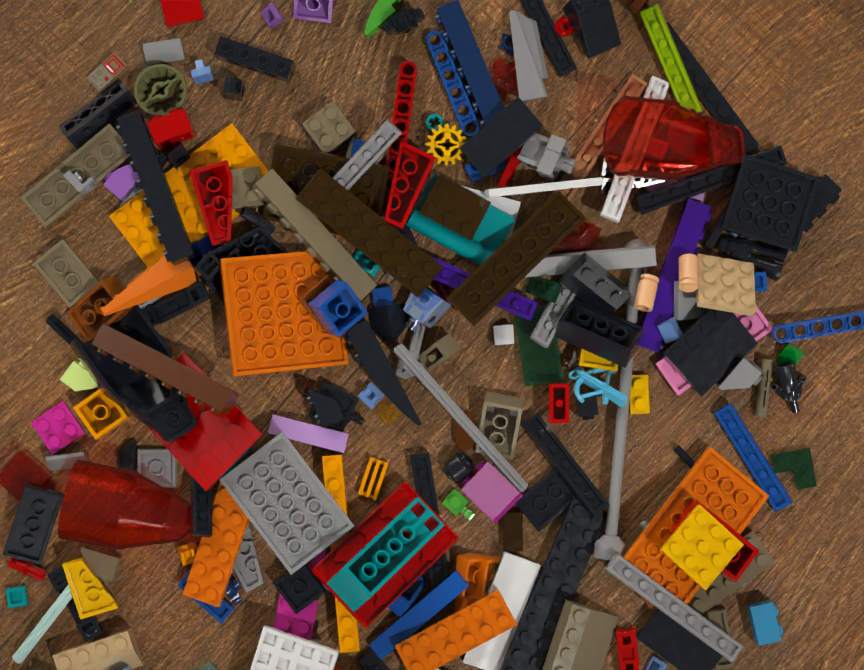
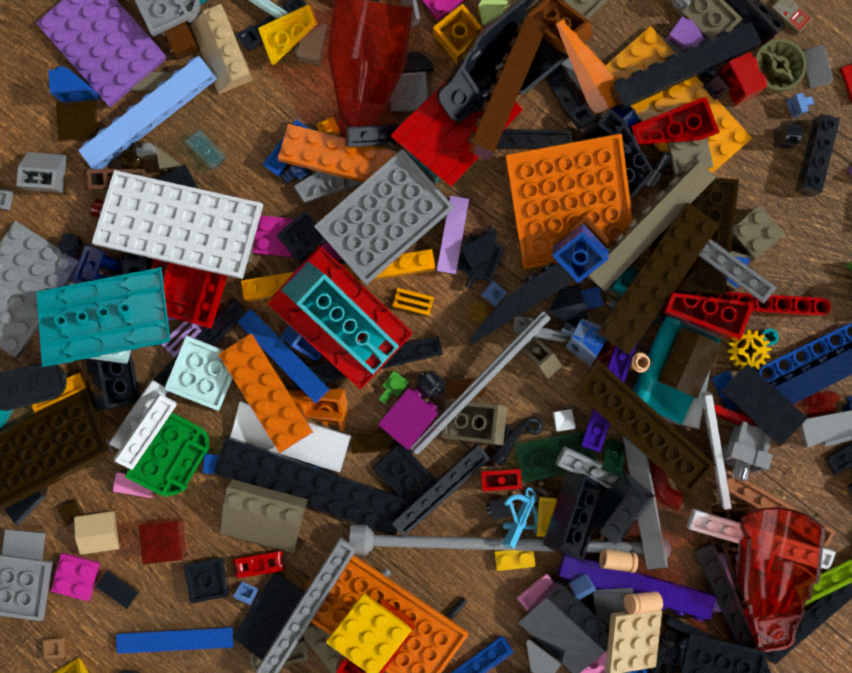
camera: 90 degrees right, 0 degrees up
(215, 342) = (533, 138): none -> black tile
(451, 255) = (639, 362): none -> light nougat cone
(518, 390) = (510, 438): none -> black plant

